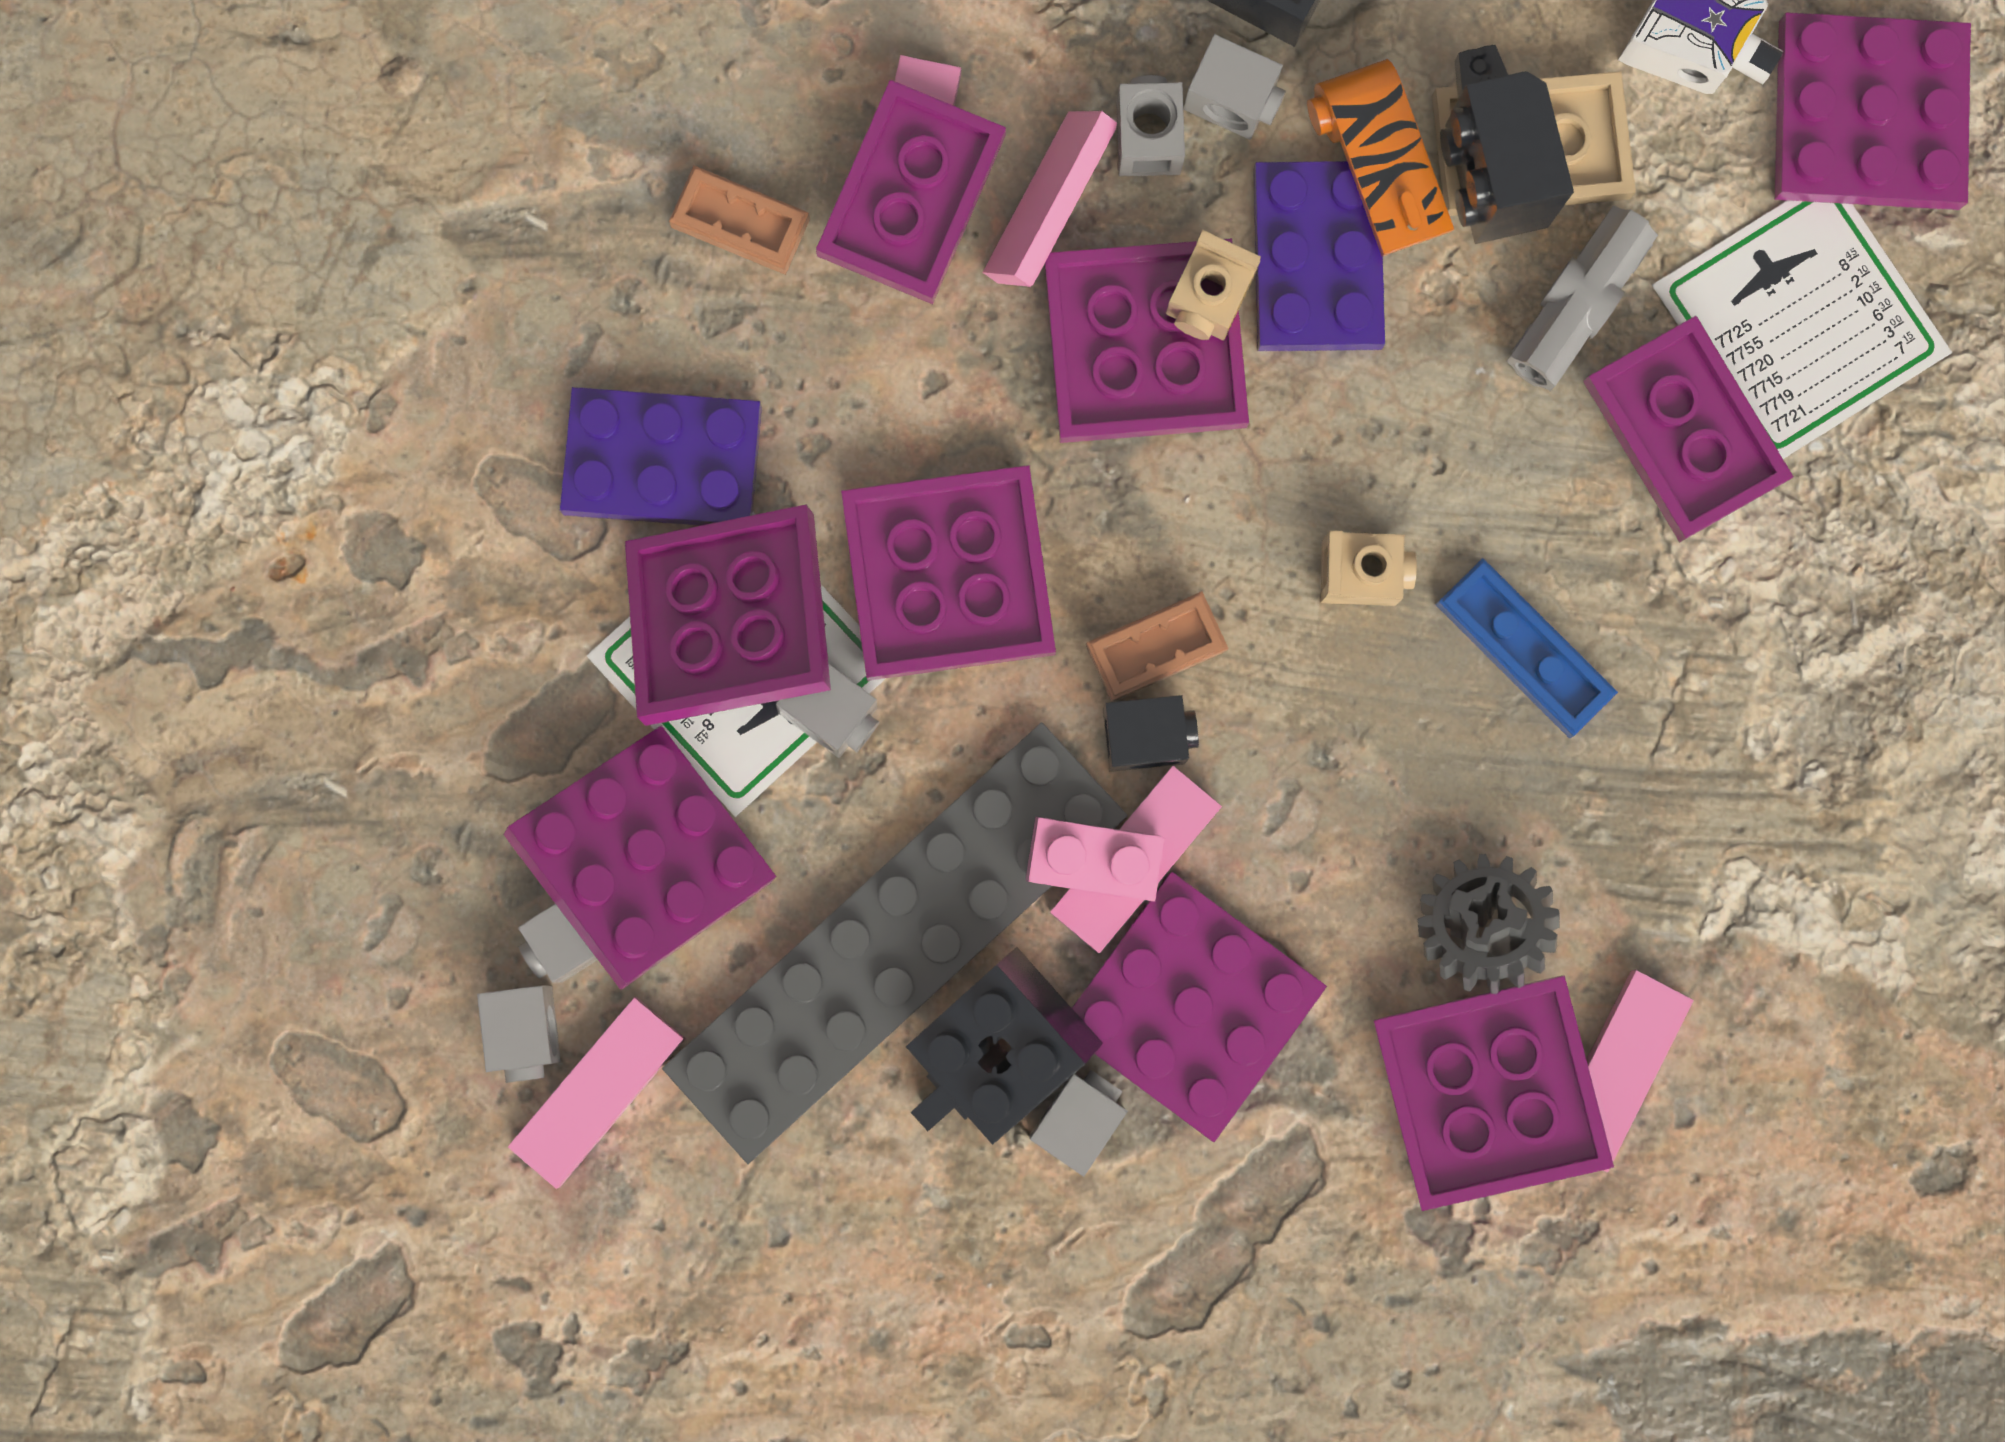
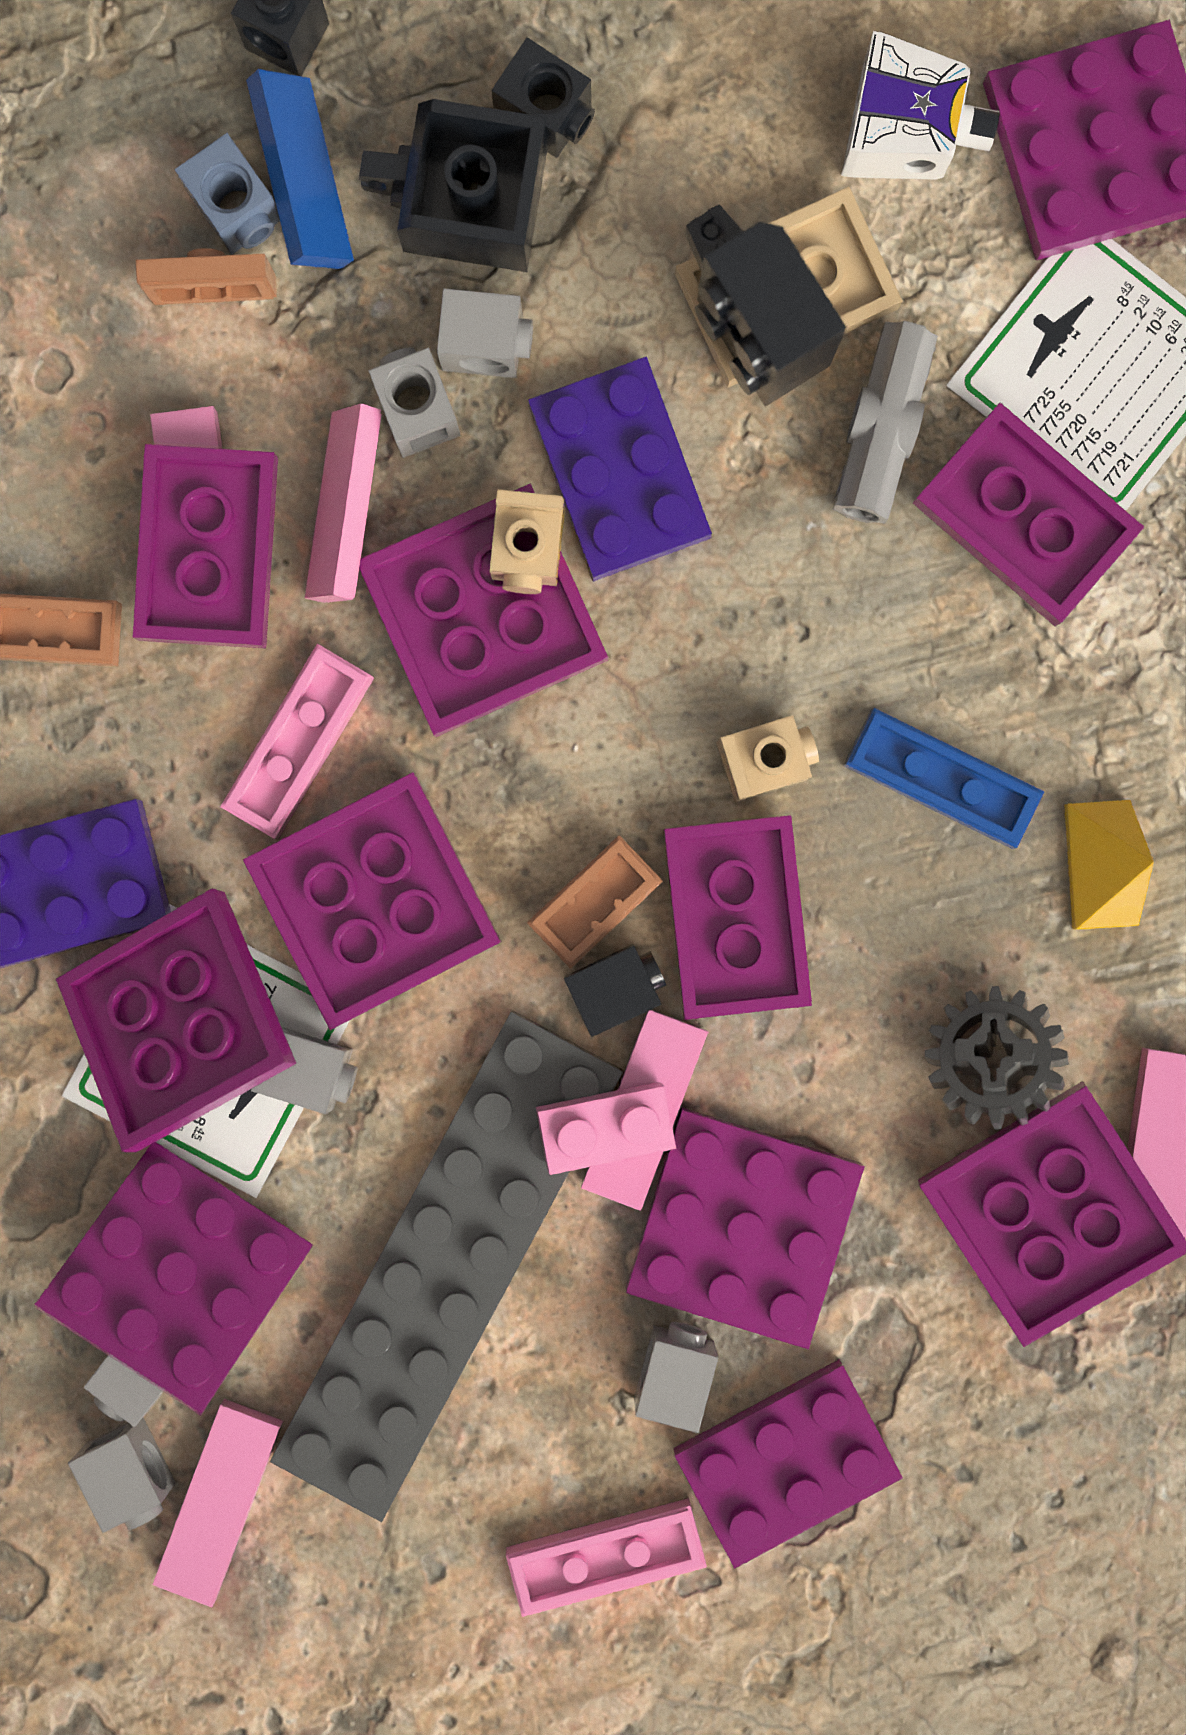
camera: 15 degrees left, 5 degrees up
(928, 402) = (297, 742): none -> bright pink tile
(949, 1278) = (605, 1557): none -> bright pink tile
(977, 1073) = (580, 1338): black hinge -> none
(1155, 1248) = (787, 1463): none -> magenta plate
(1287, 708) = (737, 917): none -> magenta plate
(1384, 152) = (648, 347): orange door -> none
(1653, 782) = (1106, 864): none -> yellow slope

